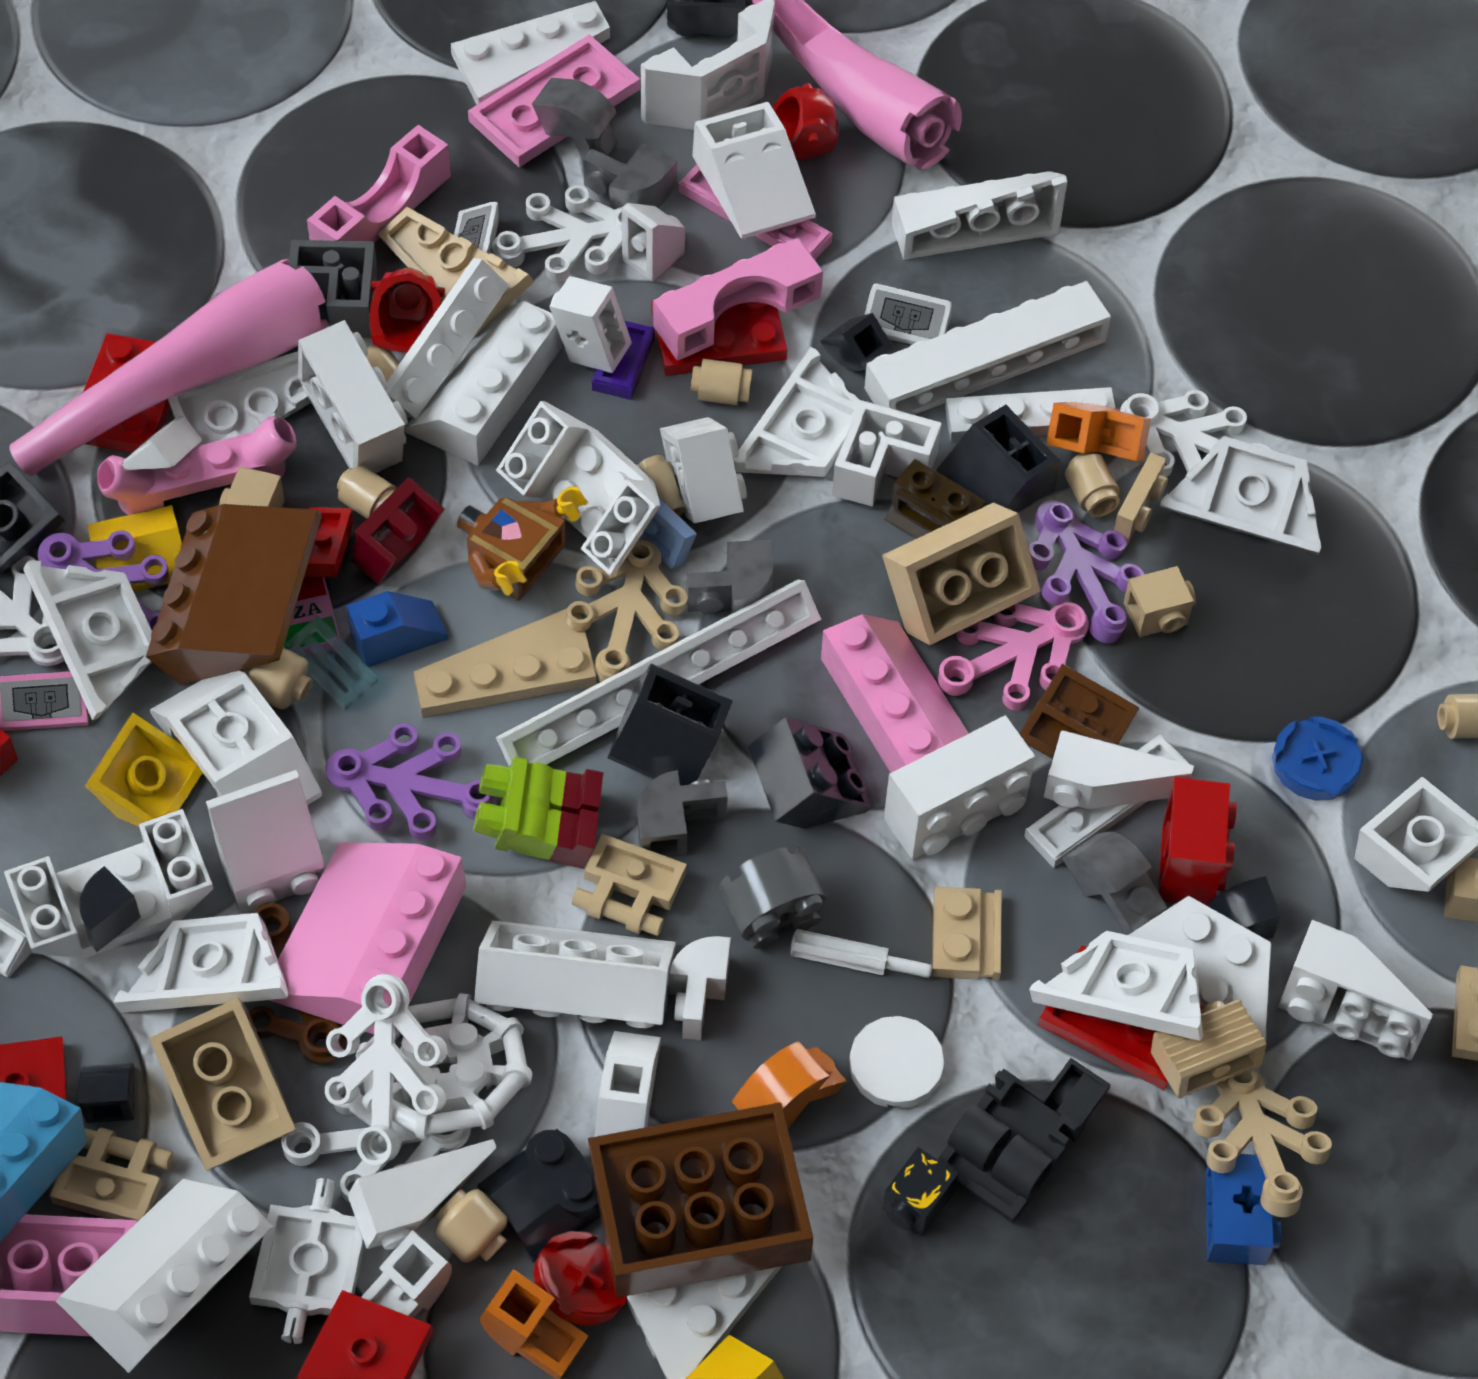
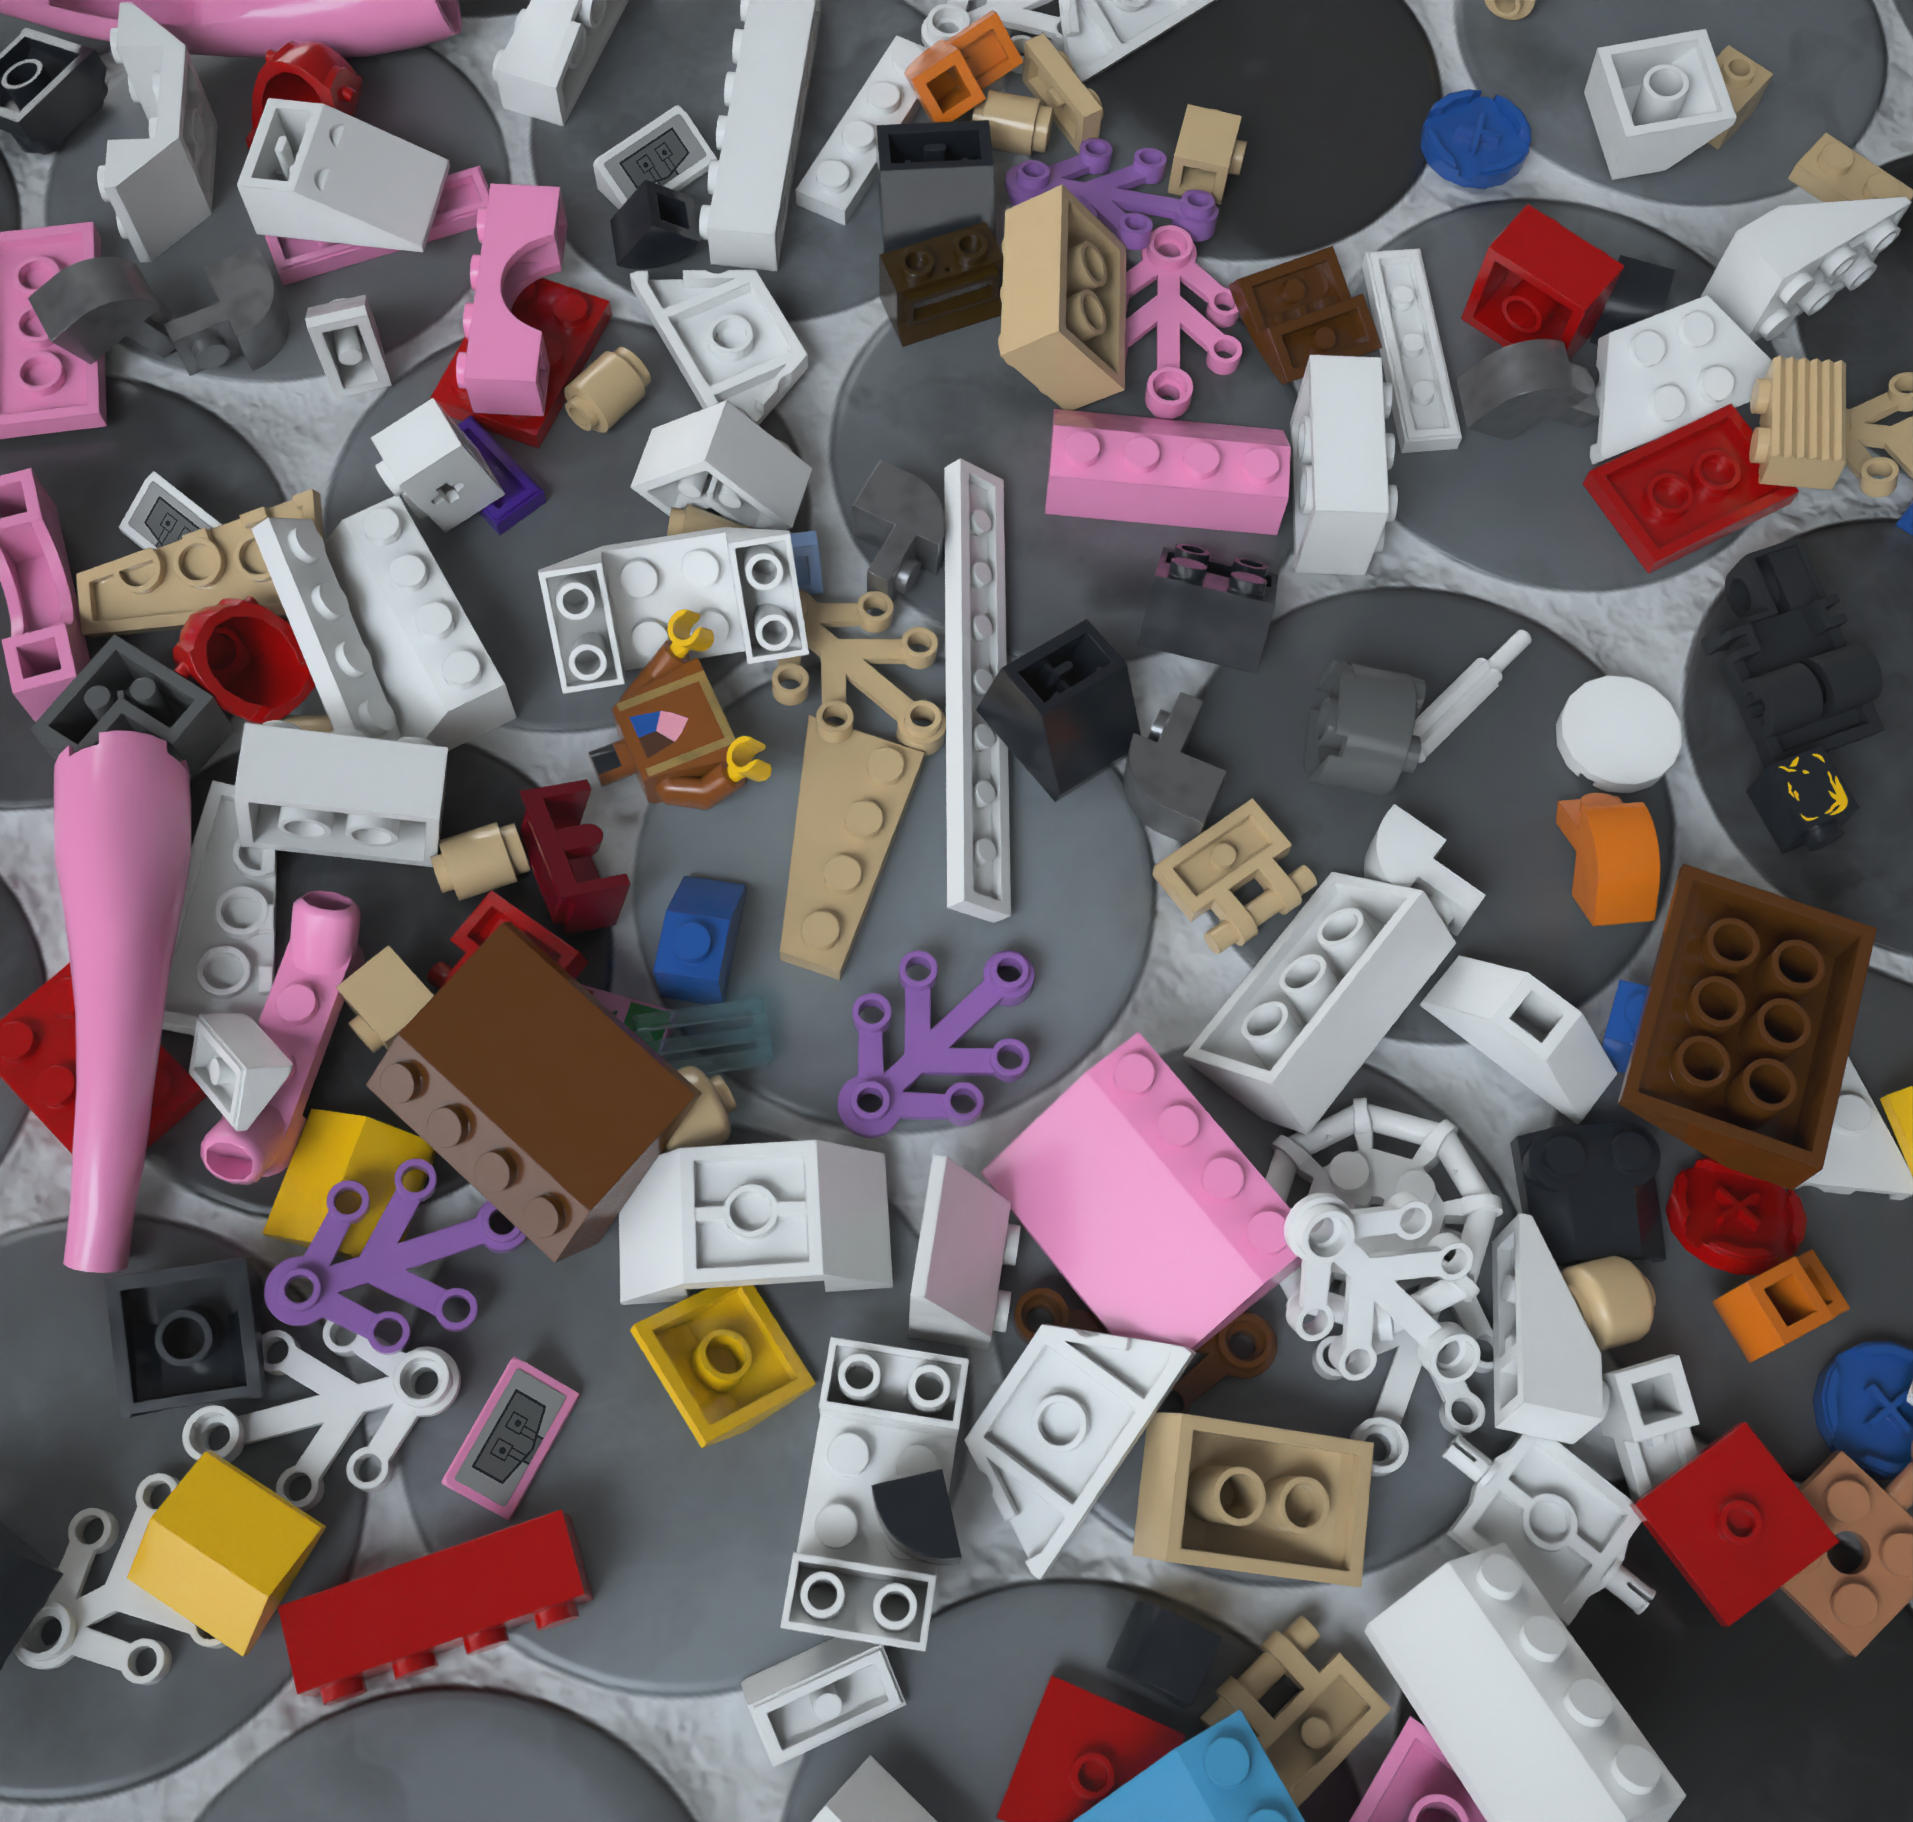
camera: 60 degrees left, 10 degrees up
(95, 628) = (465, 1304): white wing -> none
(541, 811) = (1086, 916): lime hips -> none
(572, 233) = (259, 421): white plant -> none
(881, 444) = (828, 285): white brick -> none
(966, 933) = (1495, 574): tan plate -> none
(1104, 774) = (1404, 316): white slope -> none
(1130, 984) = (1695, 444): white wing -> none

